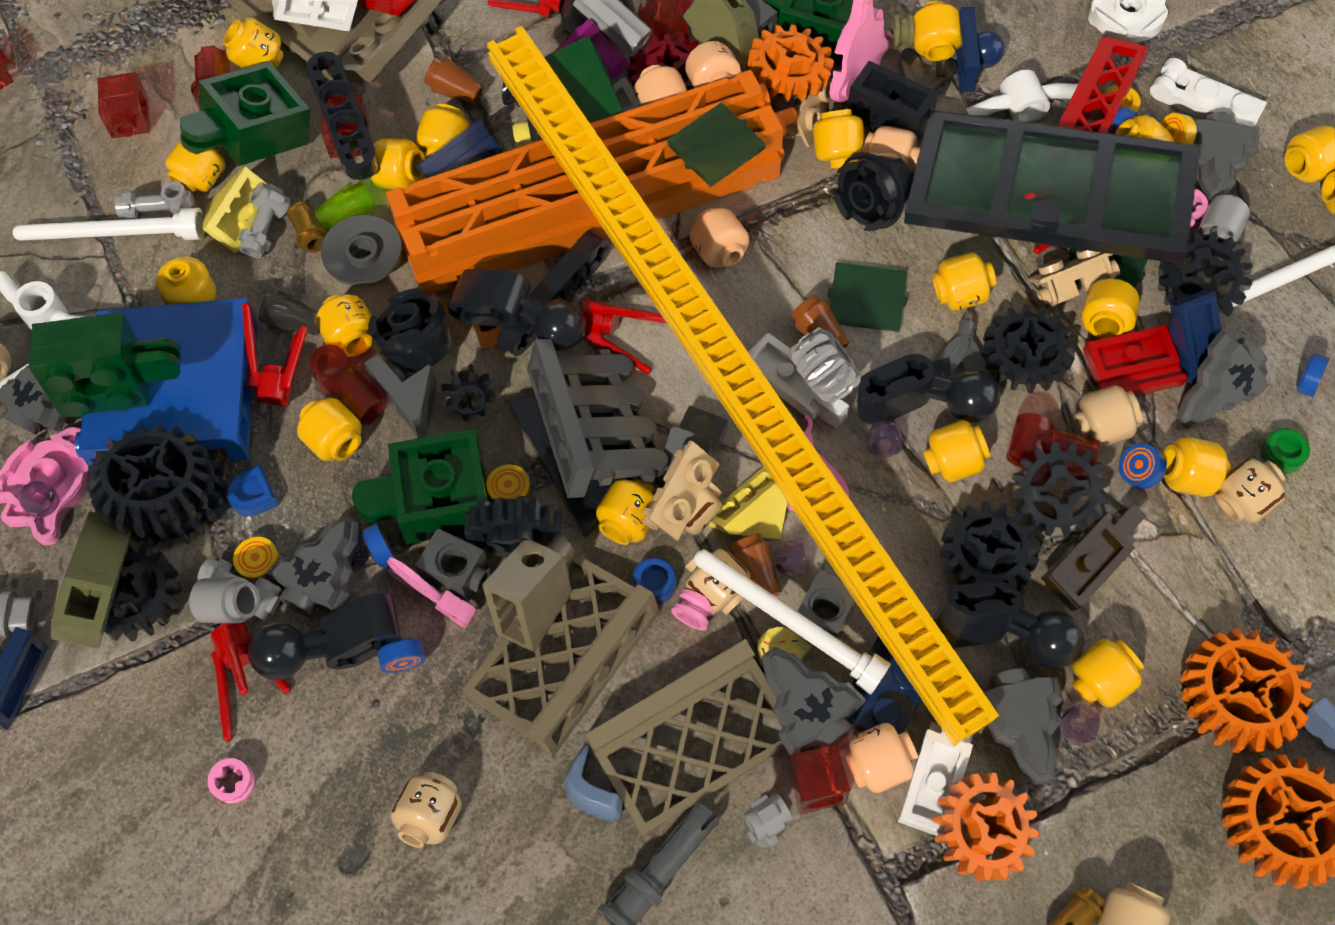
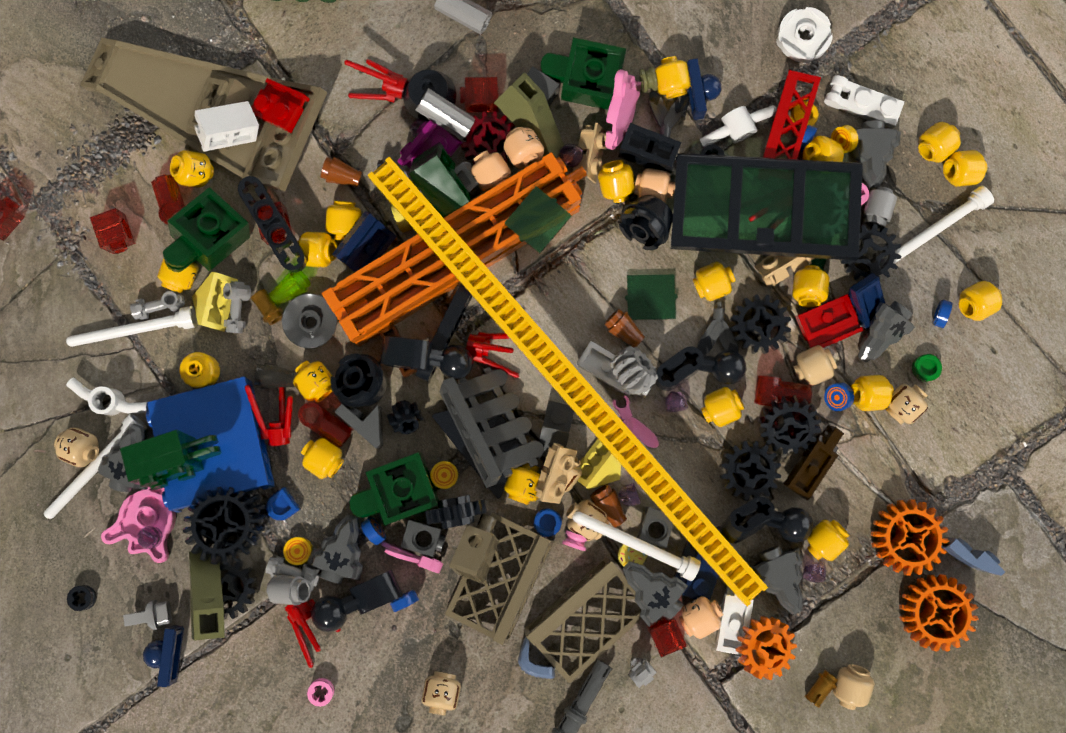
camera: 10 degrees left, 20 degrees up
(717, 236) = (547, 273): light nougat head -> none
(790, 62) = (587, 135): orange gear -> none

